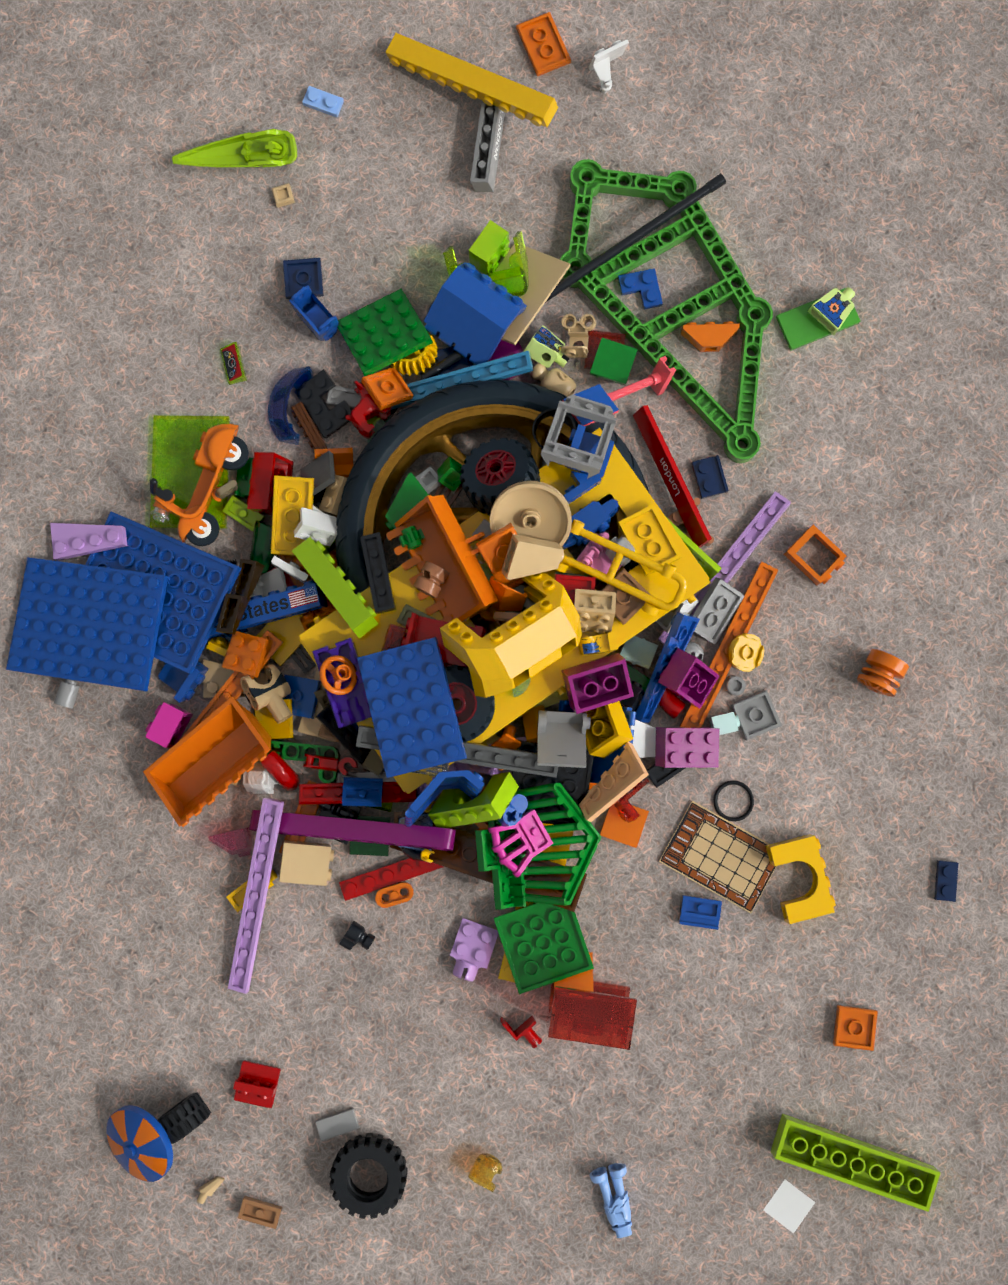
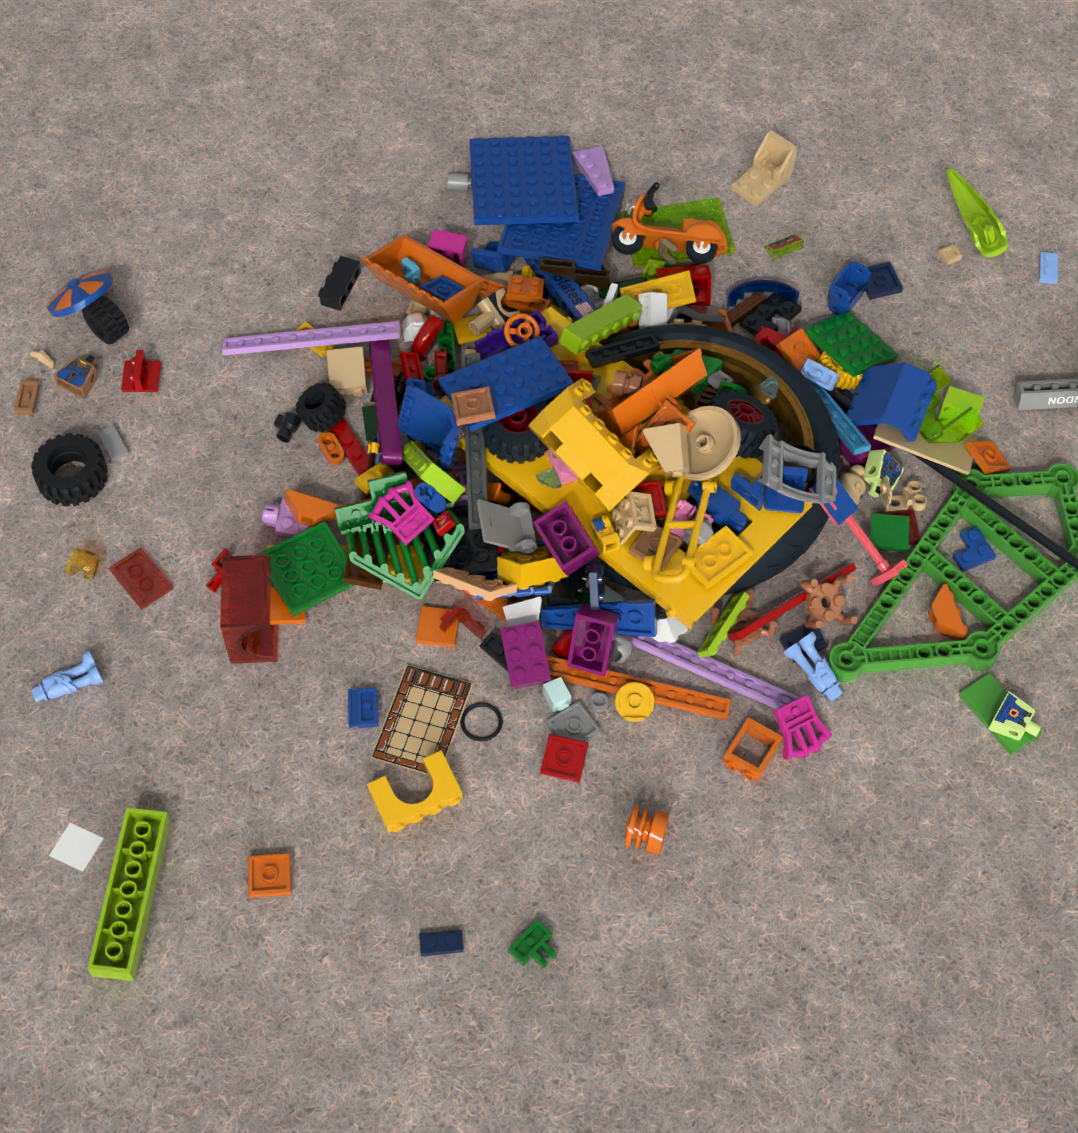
camera: 75 degrees right, 25 degrees down
(132, 355) = (770, 169): none -> tan bracket
(180, 851) = (339, 283): none -> black brick
(192, 771) = (411, 271): none -> medium azure bracket
(235, 743) = (442, 288): none -> blue plate
(235, 841) = (355, 314): clear pink slope -> none
(244, 1153) = (77, 376): none -> torso
(339, 909) = (320, 407): none -> black tyre
(423, 375) = (820, 374): none -> light blue plate
(443, 749) = (473, 406): none -> nougat tile
(451, 431) = (770, 386): none -> clear light blue tile
(454, 862) = (377, 471): none -> yellow plate
(473, 930) = (309, 509): none -> orange slope
(509, 1112) = (141, 578): none -> clear red tile
(543, 801) = (443, 523): none -> red tile
(545, 239) = (988, 456): none -> orange tile
(647, 664) = (597, 588): none -> dark blue plate
(685, 440) = (834, 600): none -> nougat plate
(716, 610) = (668, 663): light grey plate -> none
(750, 472) = (821, 675): none -> light blue piece
(789, 731) = (564, 758): none -> red tile
(799, 511) = (796, 715): none -> dark pink plate
(963, 801) = (531, 942): none -> green hinge

